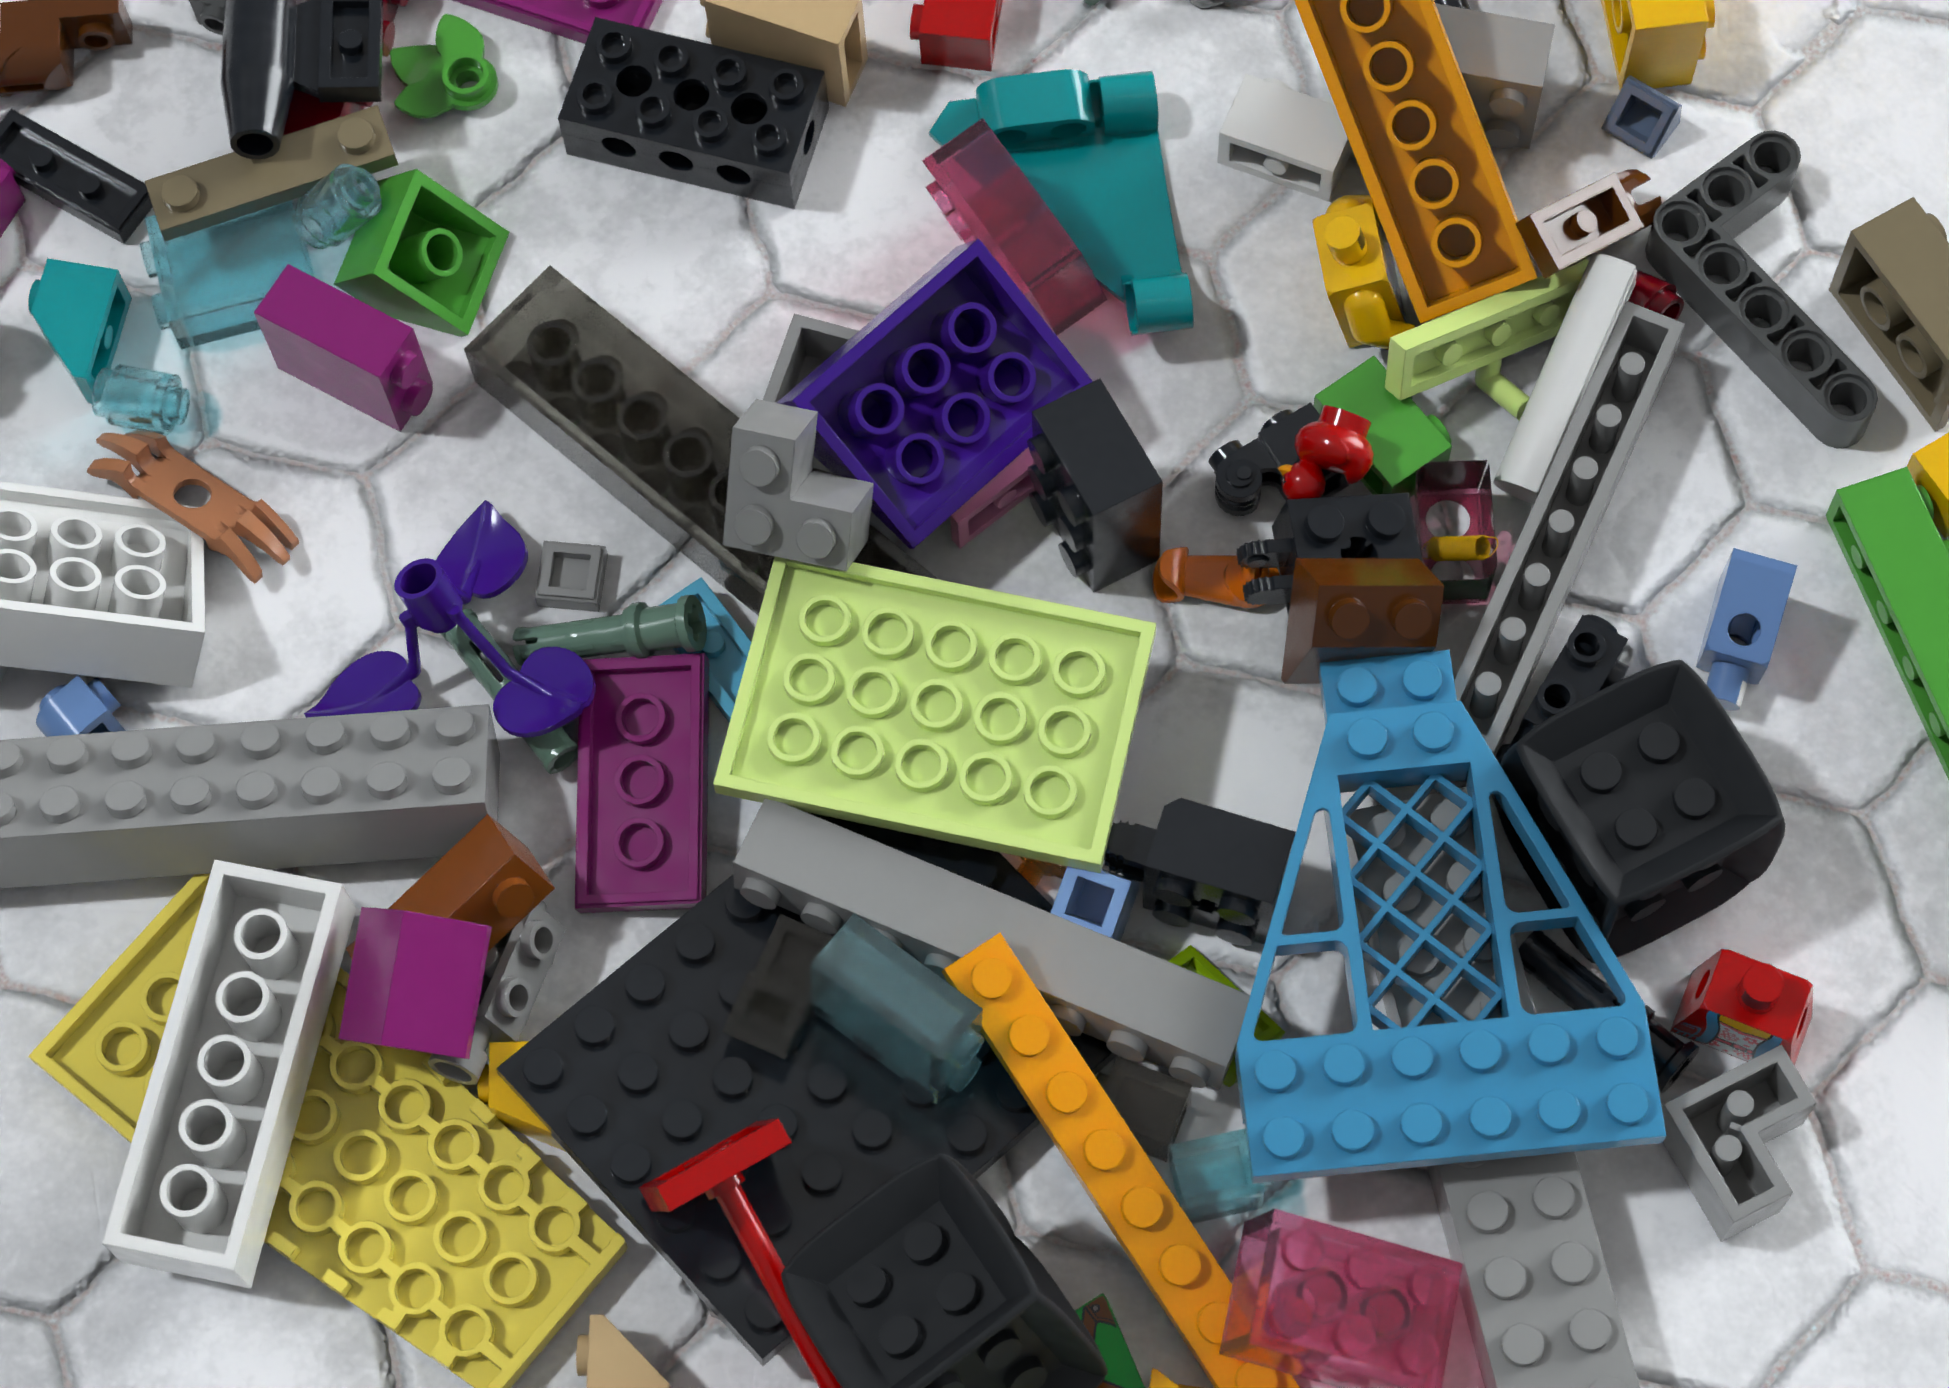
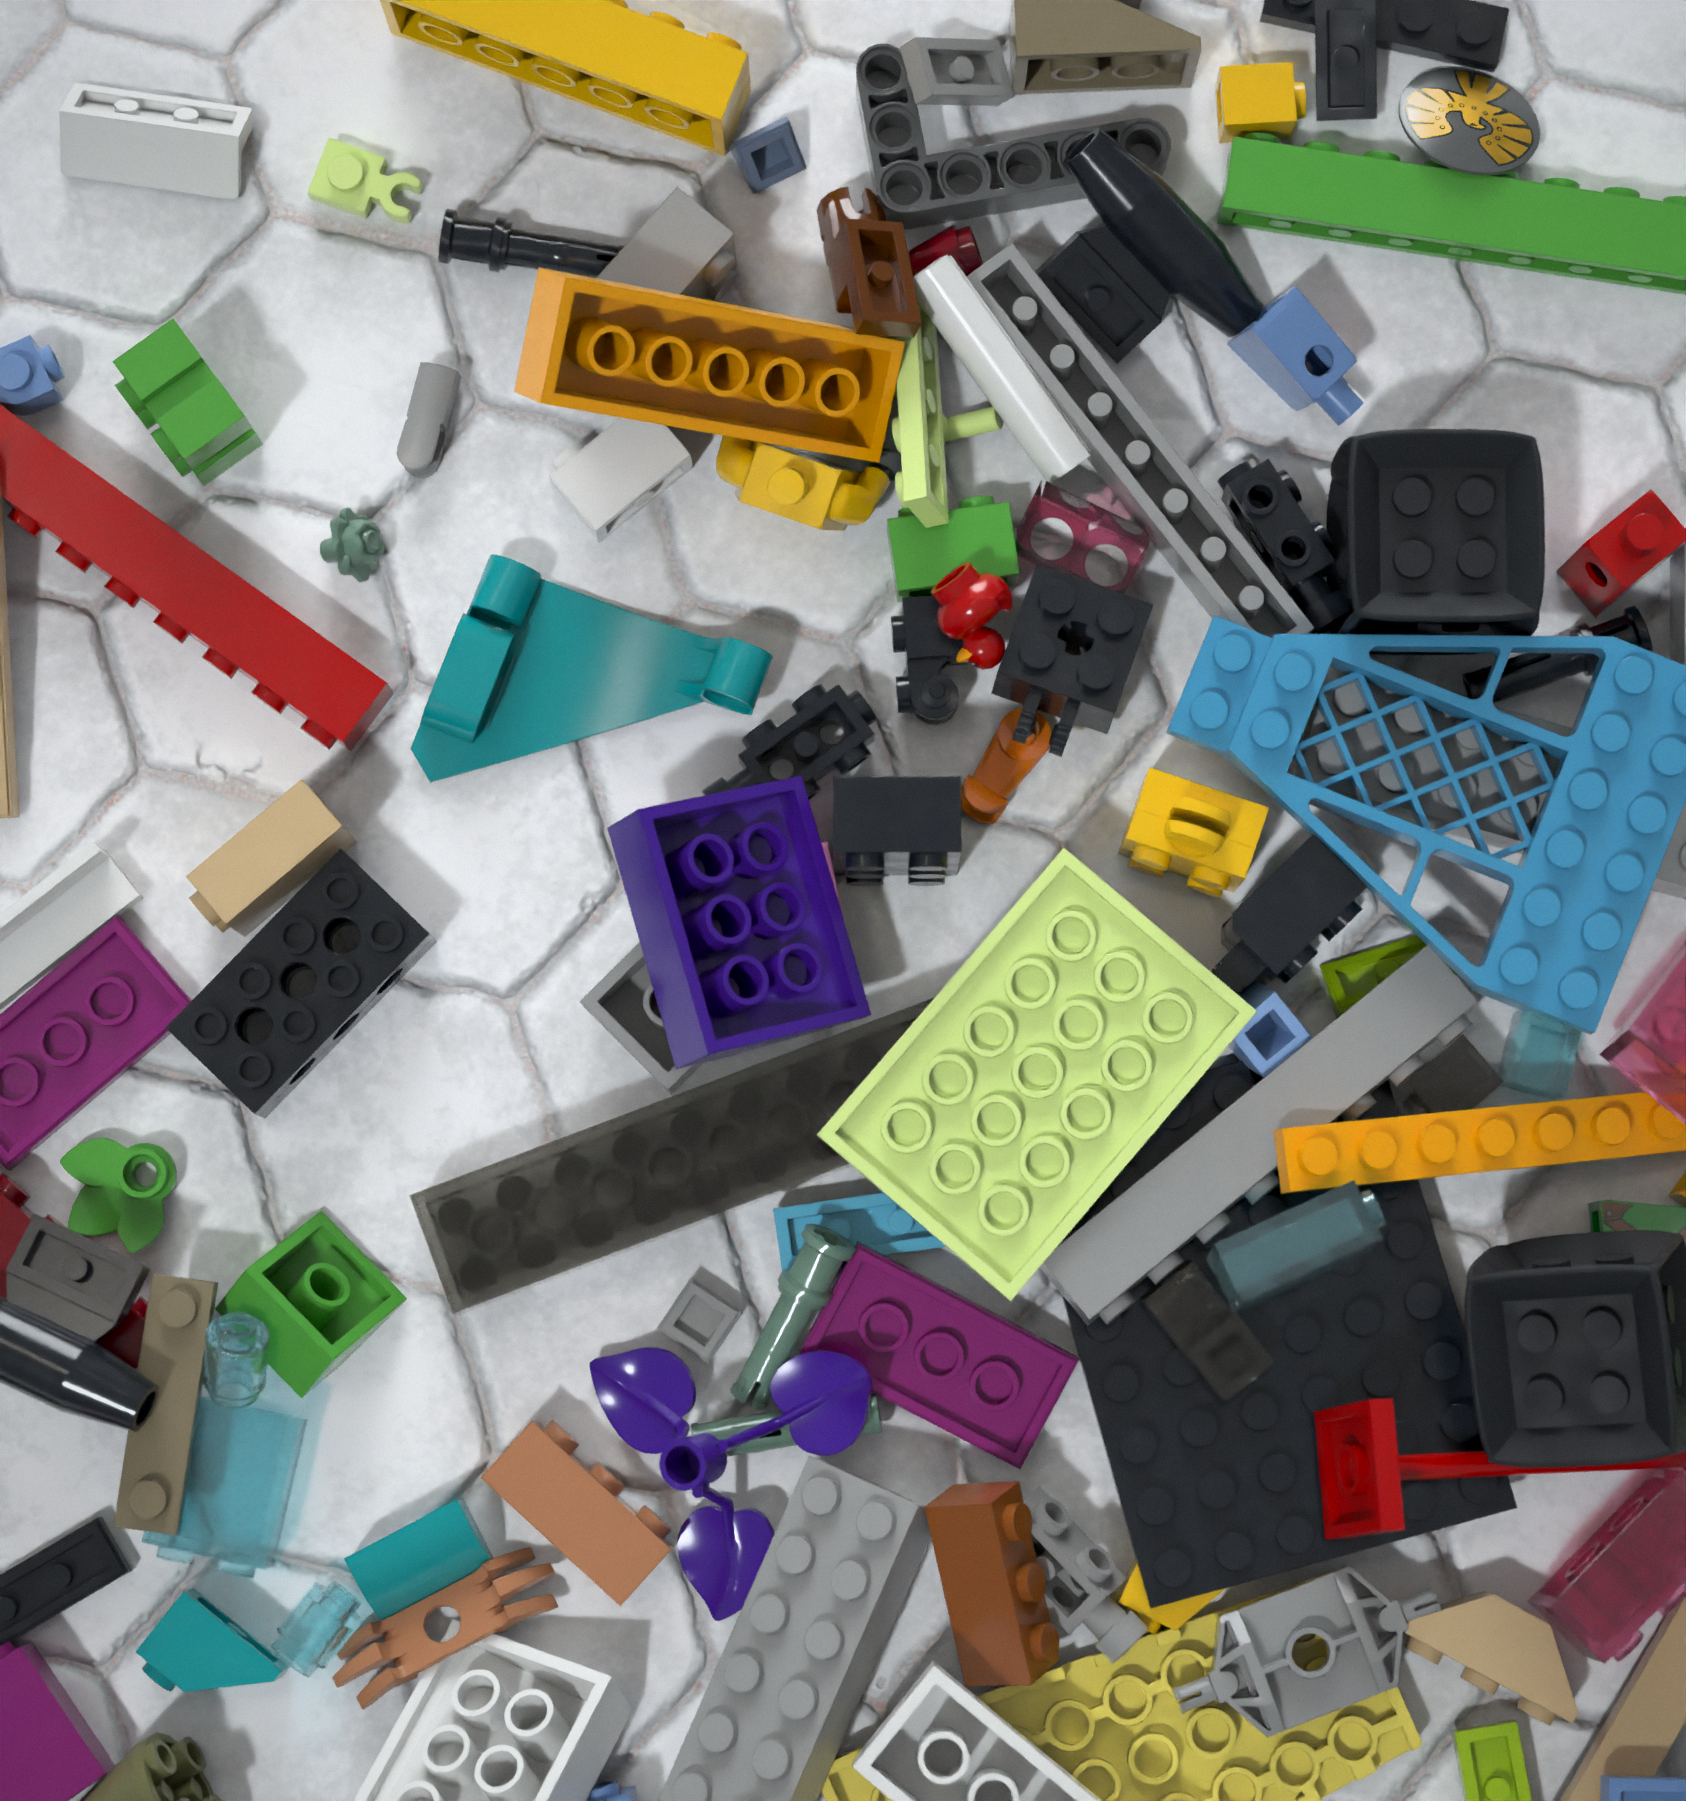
camera: 65 degrees left, 15 degrees up
(242, 446) = (419, 1559): none -> teal brick
(345, 348) = (383, 1418): magenta brick -> none
(347, 555) = (579, 1509): none -> nougat brick
(415, 982) = (1054, 1646): magenta slope -> none
(561, 1277) = (1255, 1646): none -> light grey plate
(784, 505) = (792, 1103): light grey brick -> none
(992, 200) = (596, 766): clear pink brick -> none
(1146, 395) = (801, 743): none -> black brick
(1241, 743) = (1192, 833): none -> yellow brick
(1358, 612) = (1142, 668): reddish brown slope -> none
(1459, 548) = (1099, 547): yellow piece -> none
(1753, 447) = (1149, 248): none -> black plate
(1809, 214) = (956, 71): none -> light grey plate

